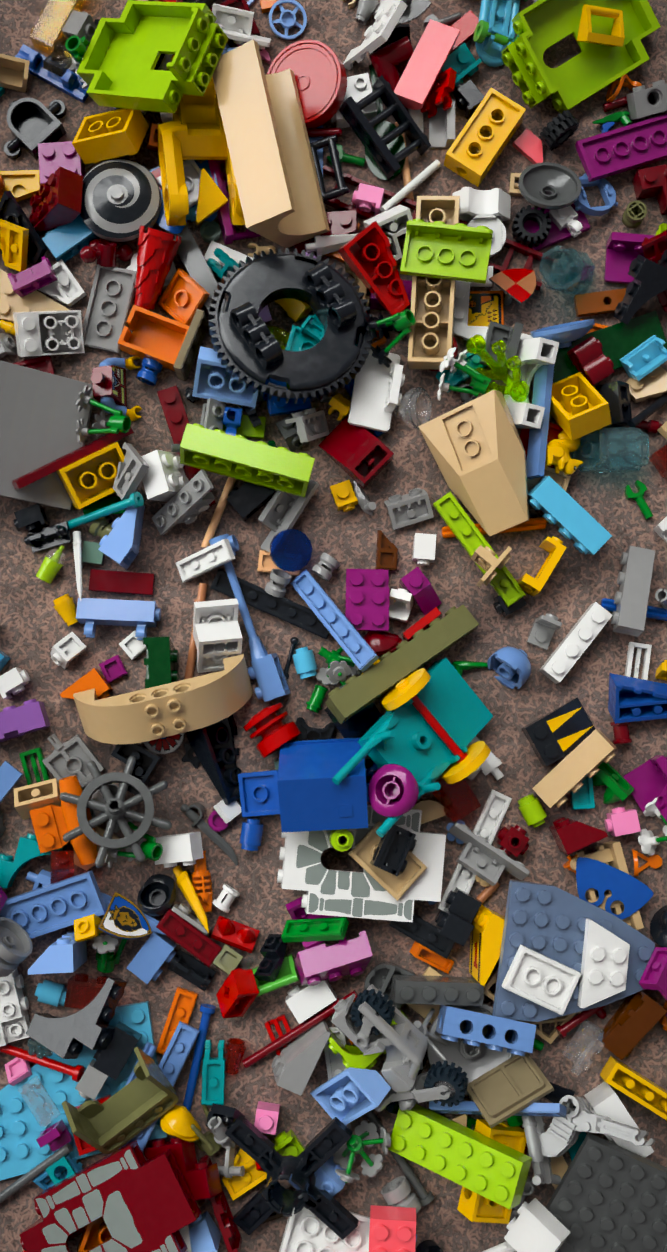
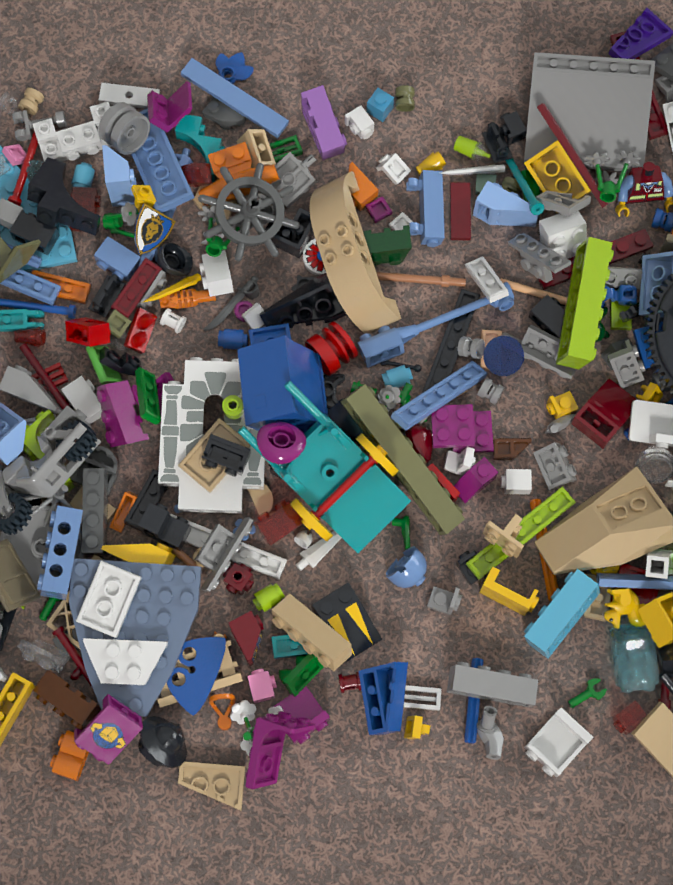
camera: 85 degrees right, 10 degrees down
(216, 633) = (419, 292): white bracket -> none
(575, 642) = (435, 631): white brick -> none

